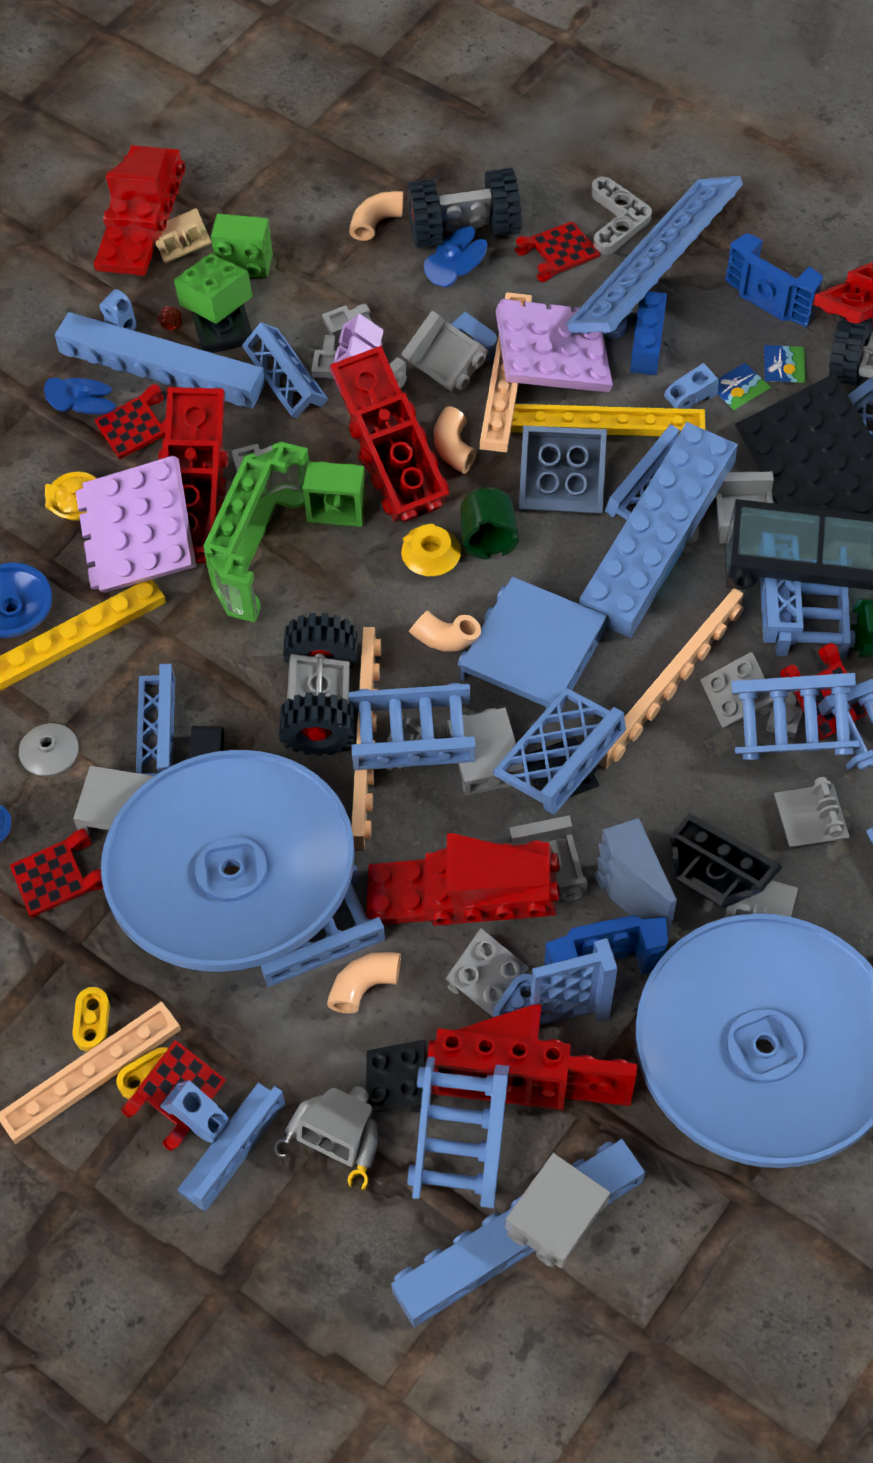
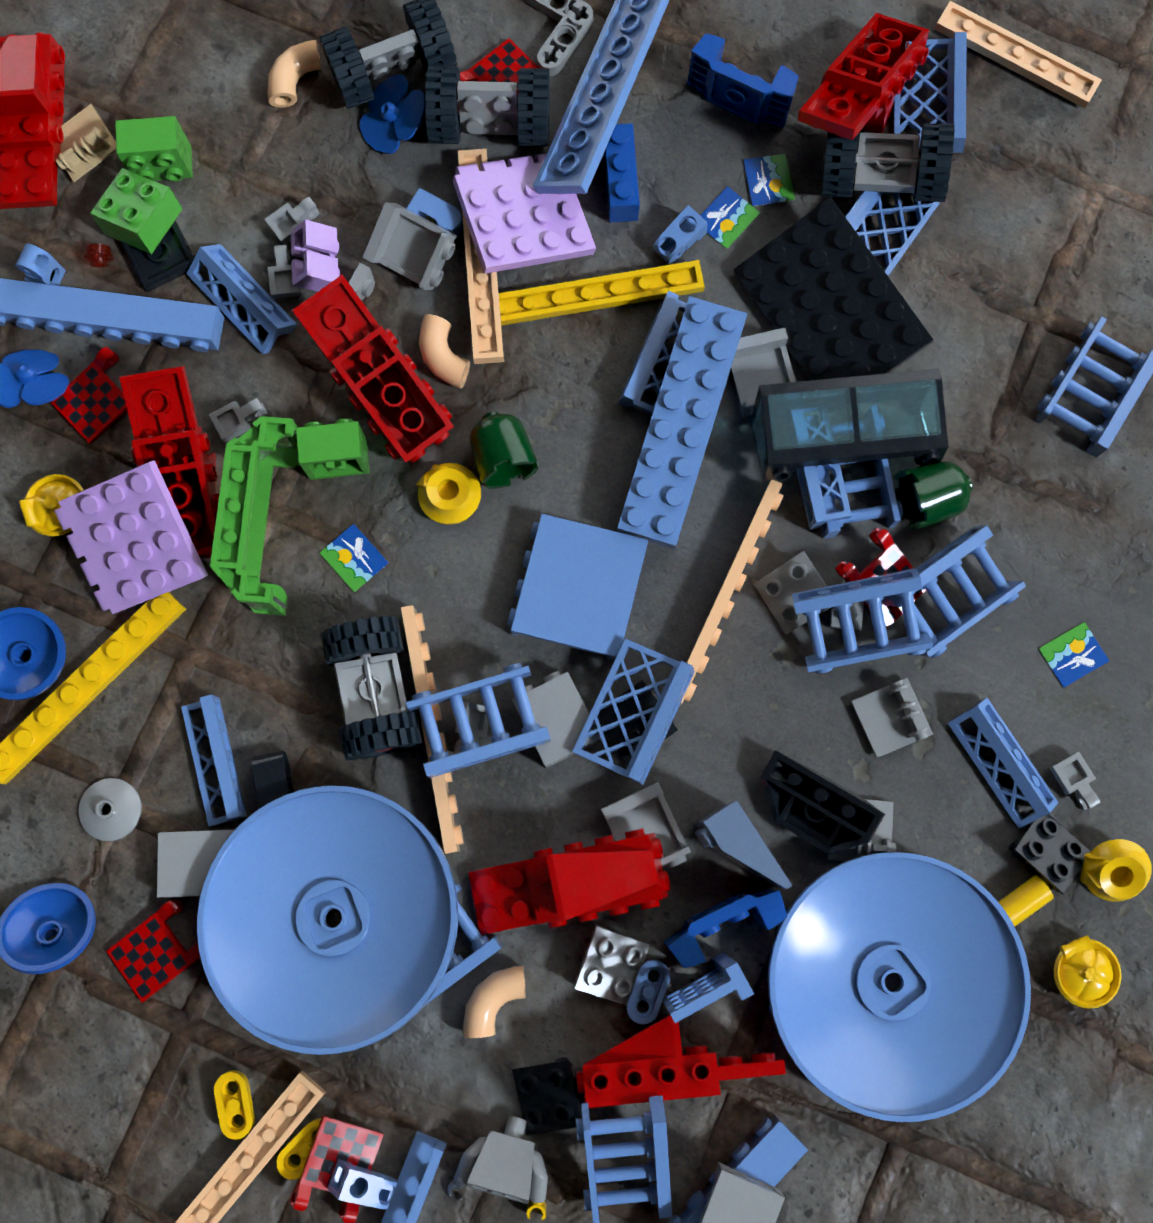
camera: 15 degrees left, 20 degrees up
(329, 589) = (354, 558): none -> sticker
(444, 635) = (487, 594): light nougat cylinder -> none
(541, 260) = (487, 106): none -> black plate
(562, 469) = (565, 365): sand blue slope -> none

